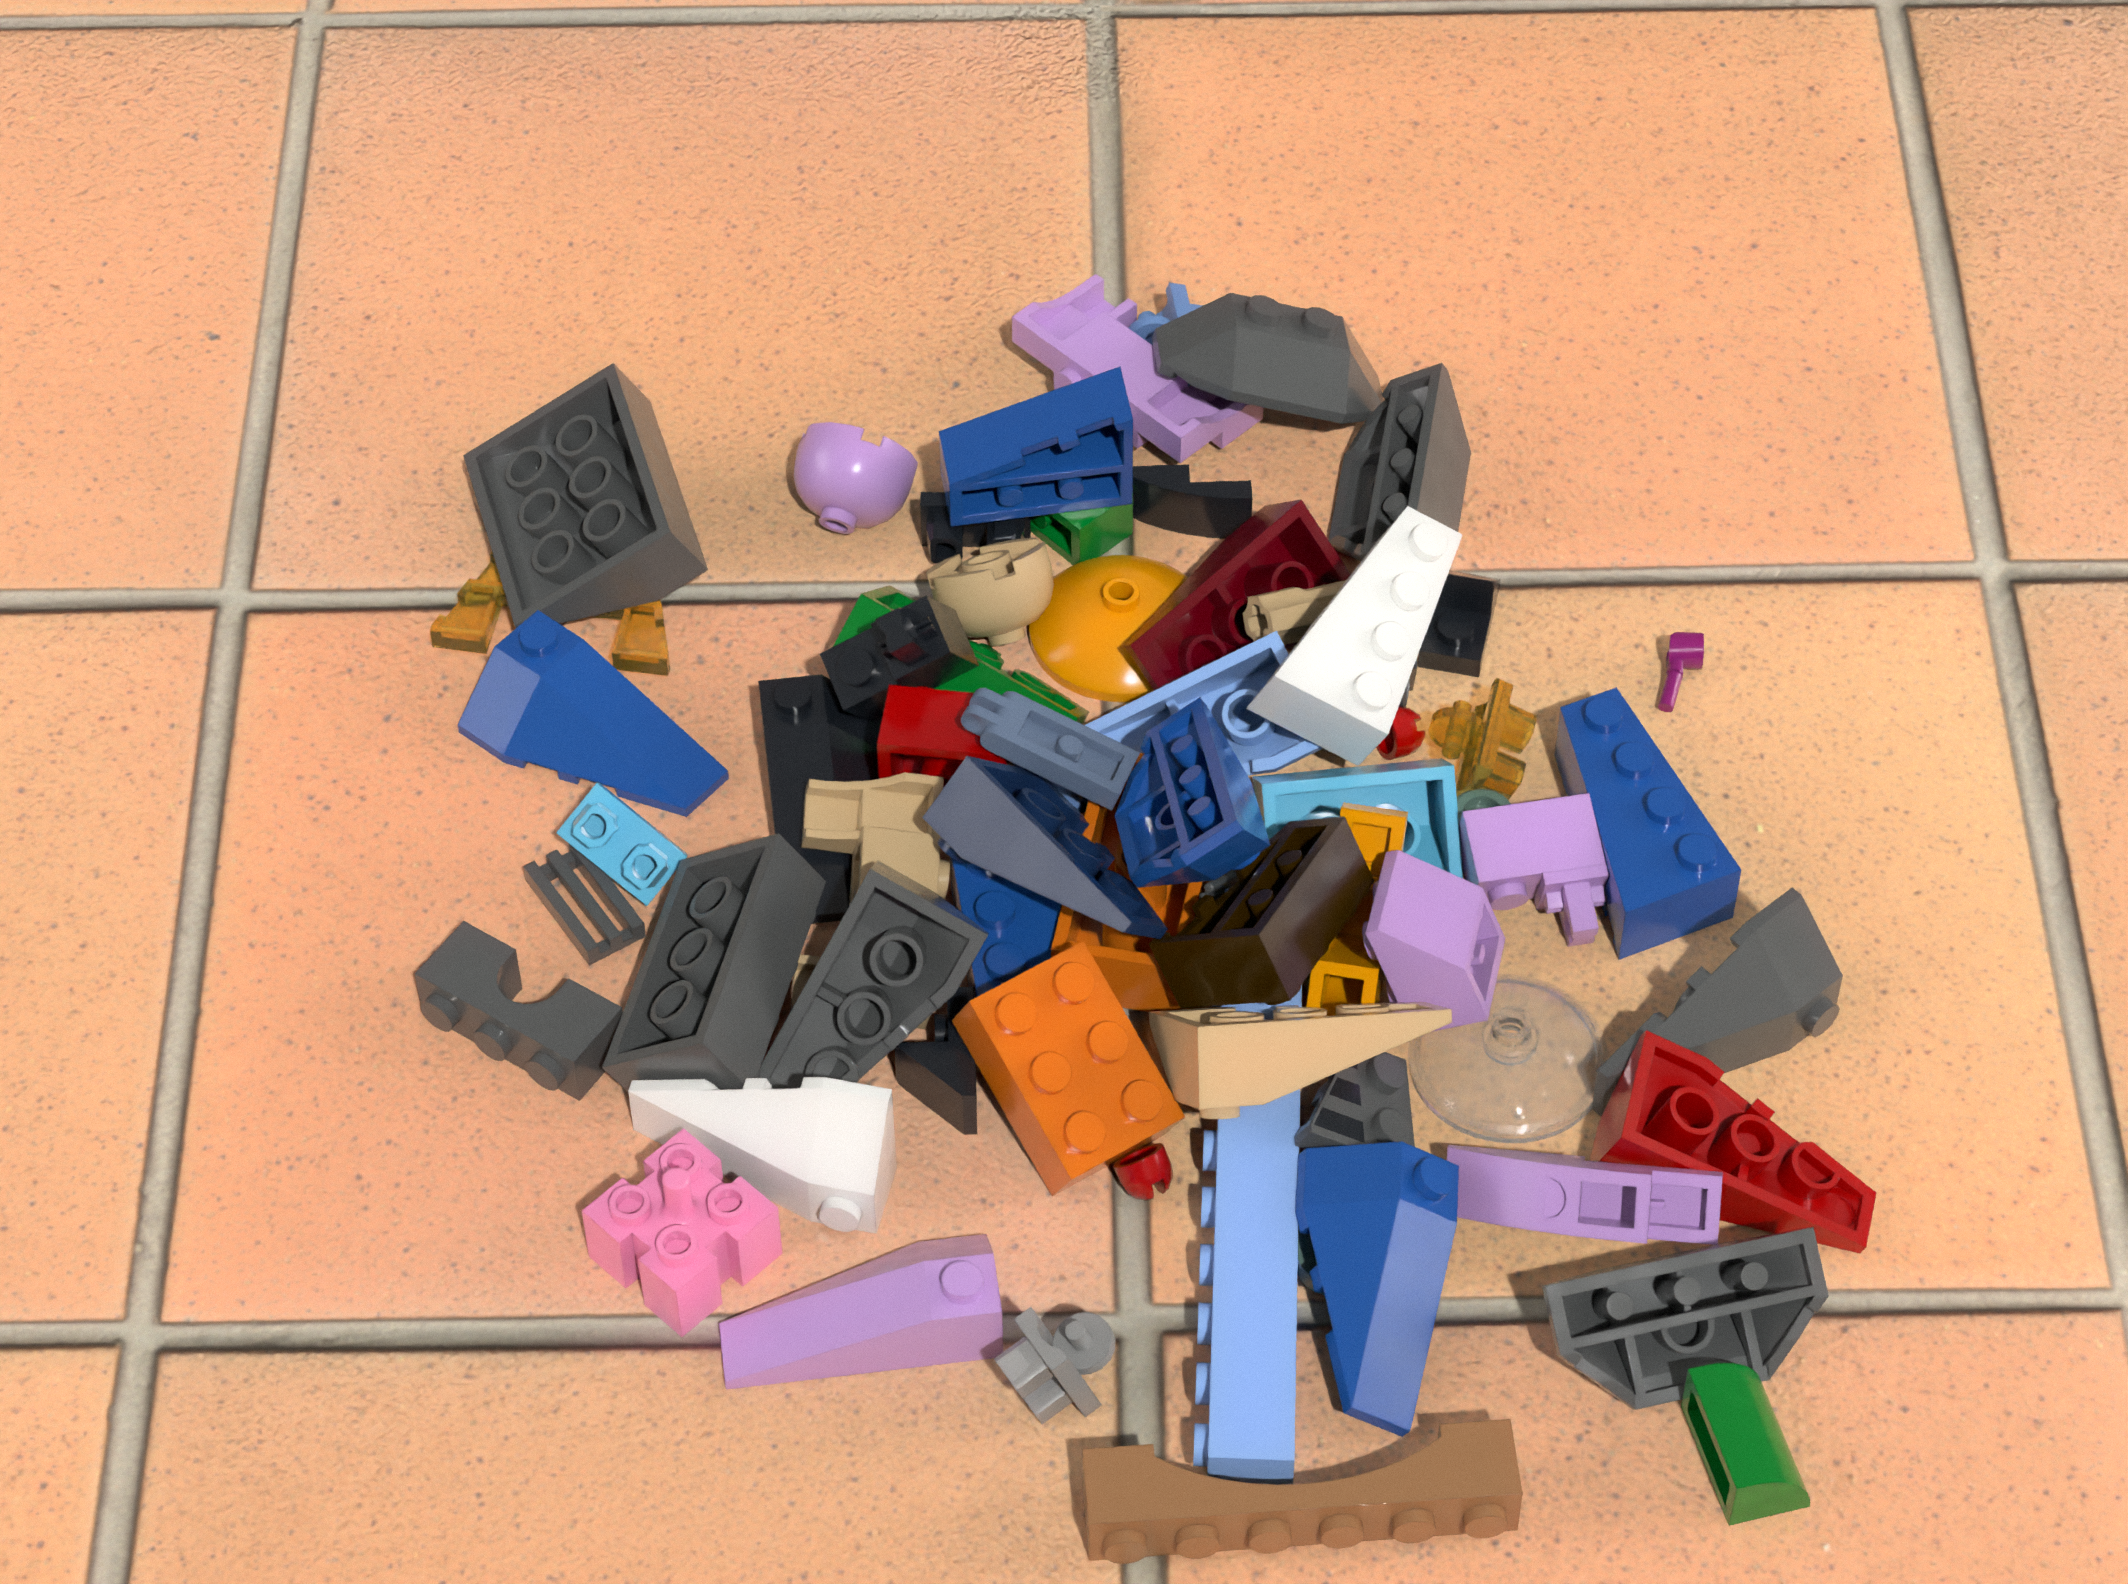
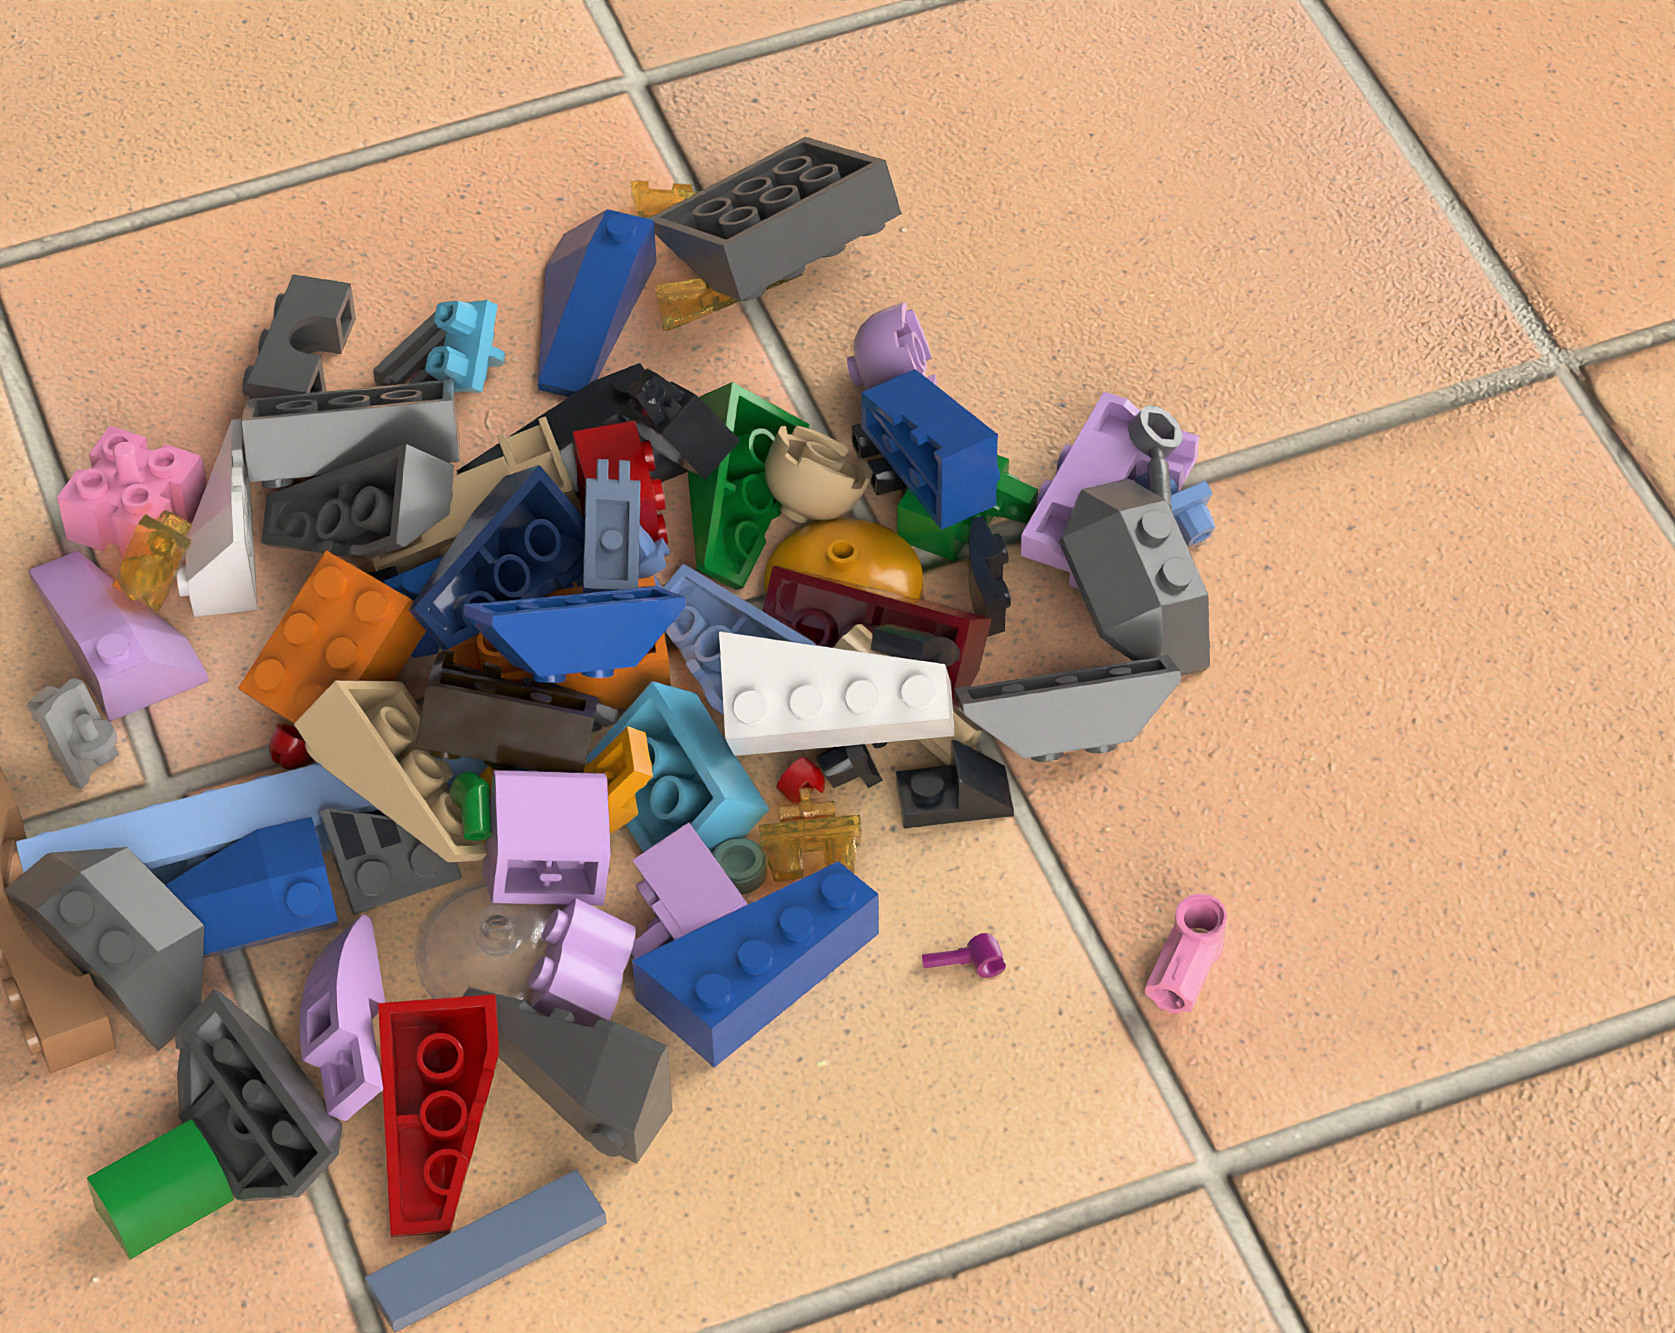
camera: 70 degrees right, 0 degrees up
(831, 1222) = (153, 558): none -> clear yellow hips
(1108, 296) = (1157, 449): none -> dark grey piece
(1335, 544) = (914, 645): none -> black slope
(1370, 977) = (472, 796): none -> green arm
(1380, 1385) = (122, 930): none -> dark grey wedge
(1604, 977) = (581, 963): none -> lavender brick
(1738, 487) = (1188, 954): none -> bright pink piece
(1915, 1168) = (485, 1250): none -> sand blue tile

